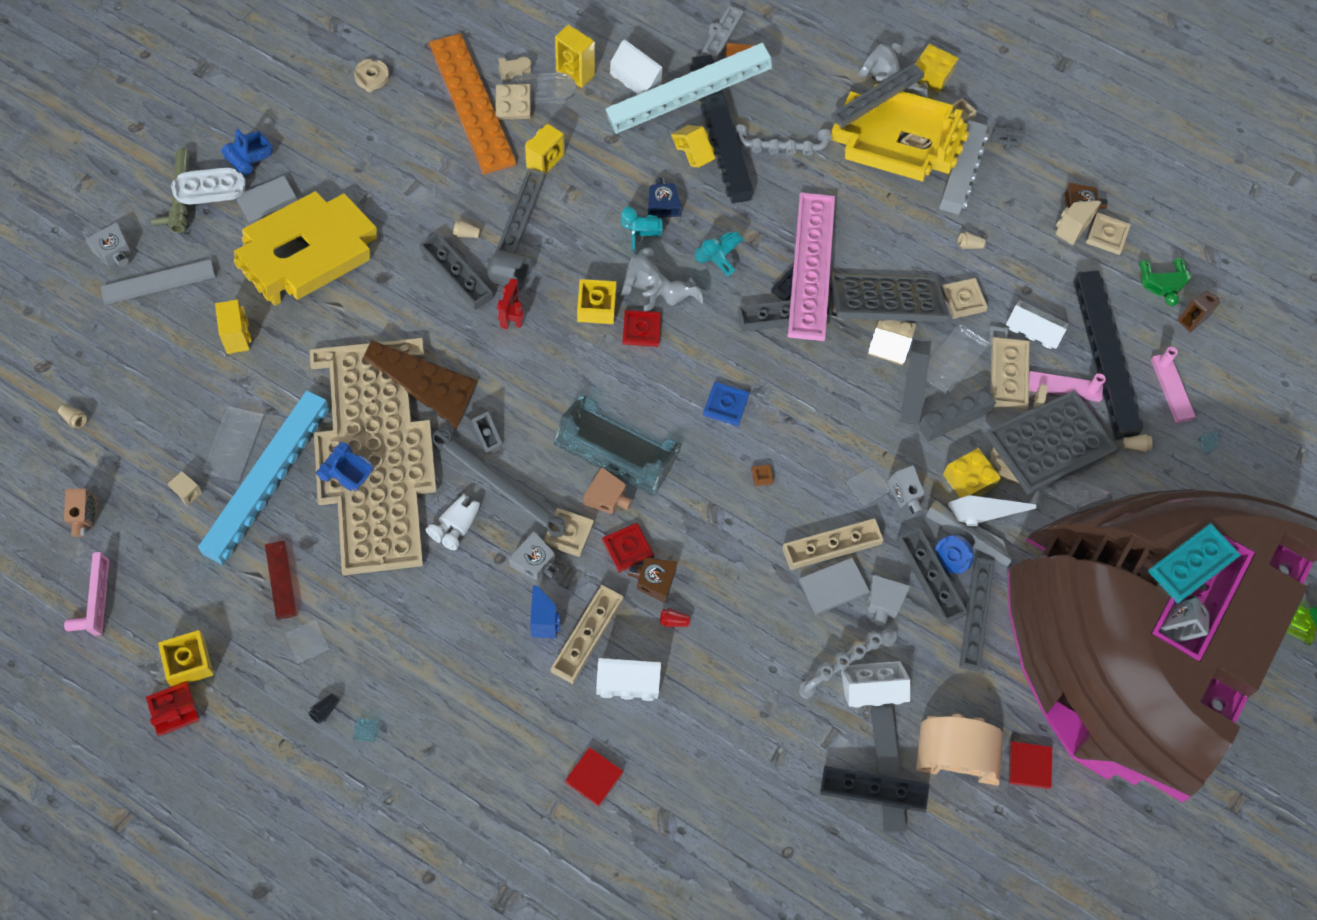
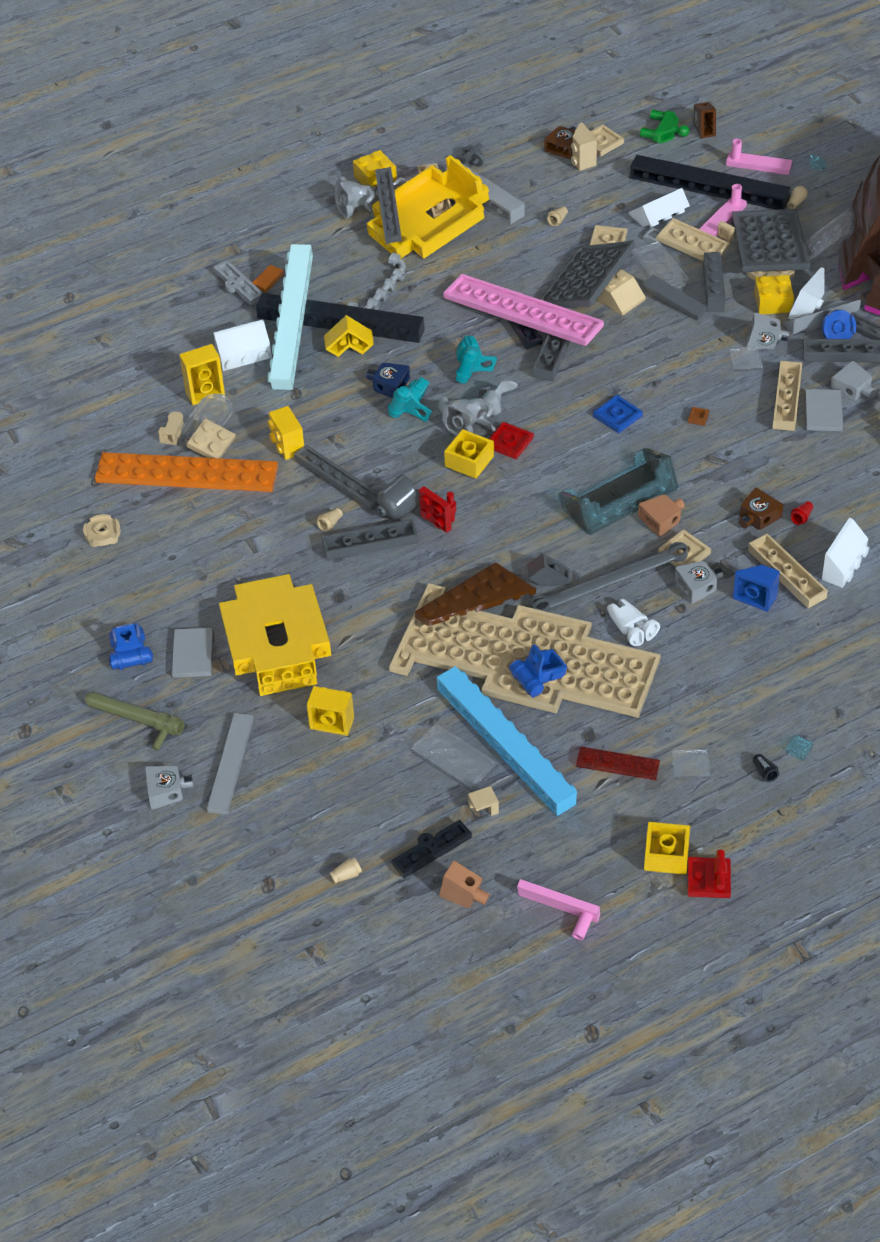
camera: 55 degrees left, 15 degrees down
(121, 469) = (431, 848): none -> black hinge
(208, 186) = (150, 685): white tile -> none
(627, 547) = (718, 521): red tile -> none

